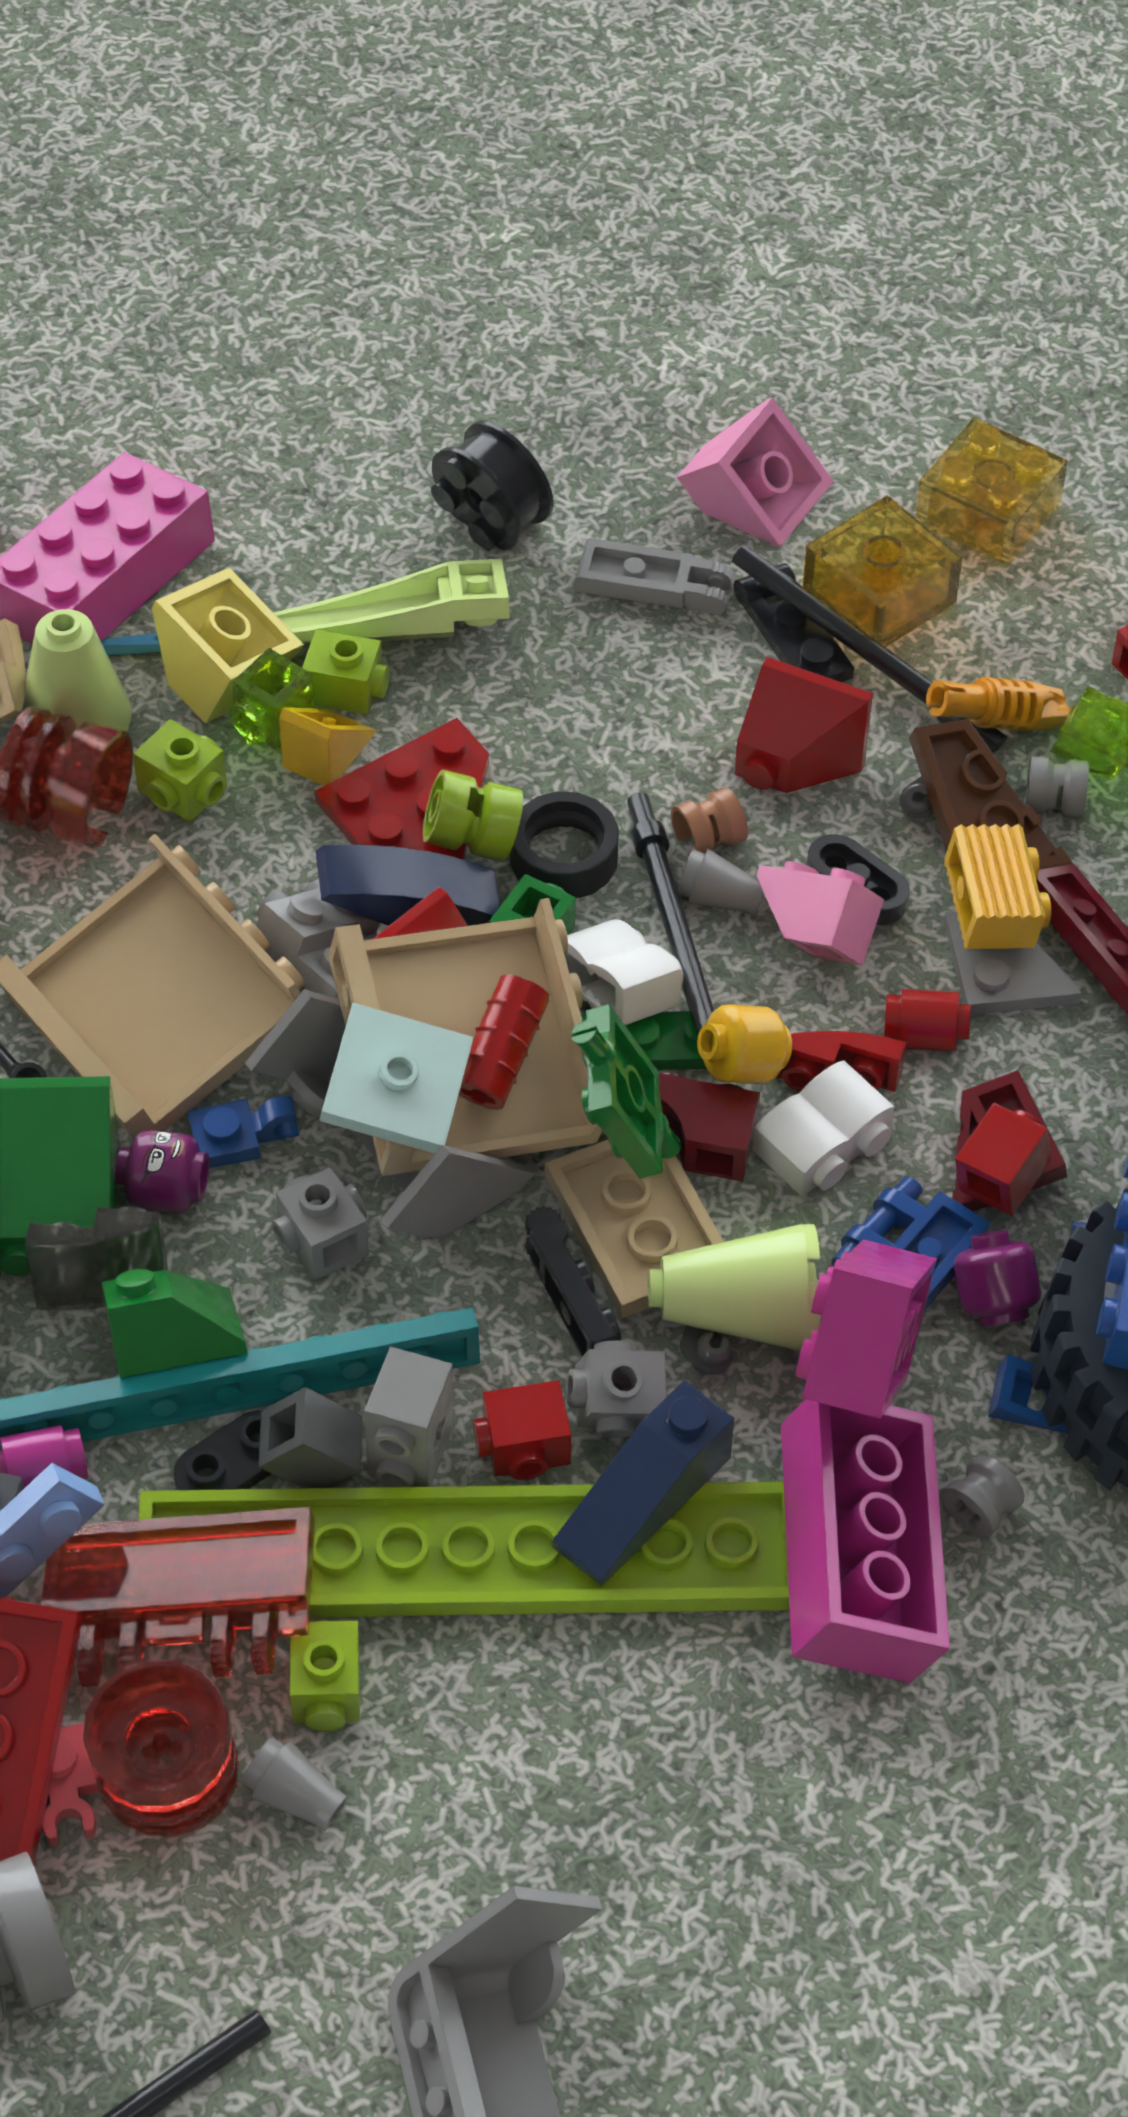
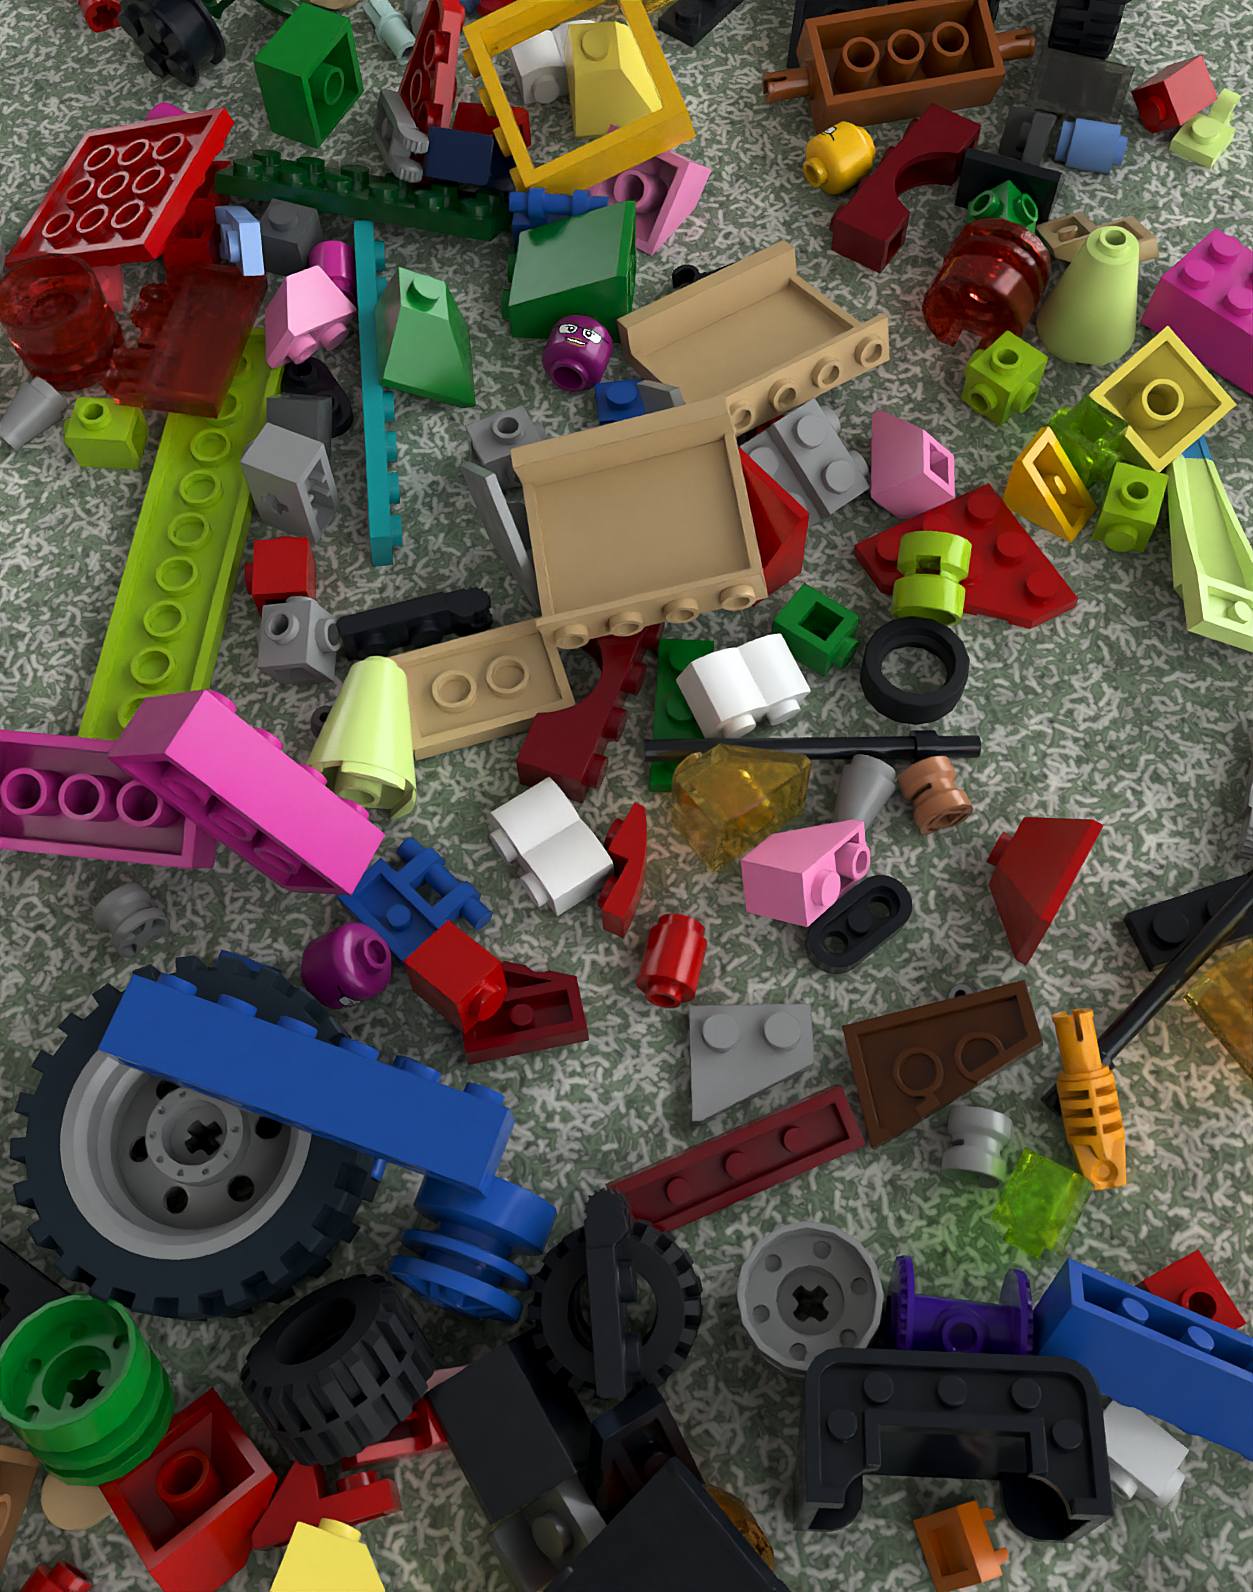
camera: 100 degrees right, 10 degrees up
(73, 1260) = (487, 295): clear smoke slope -> none
(144, 1456) = (305, 317): none -> bright pink slope
(292, 848) = (908, 467): none -> bright pink slope
(392, 880) = (845, 518): dark blue slope -> none
(396, 1078) = (568, 443): light aqua plate -> none
(502, 1041) = (620, 542): red axle -> none
(624, 1093) = (544, 625): green plate -> none
(647, 1482) = (192, 643): dark blue slope -> none
(744, 1044) = (623, 763): yellow head -> none
(770, 953) = (736, 799): none -> clear yellow slope
(996, 887) = (810, 1037): yellow brick -> none

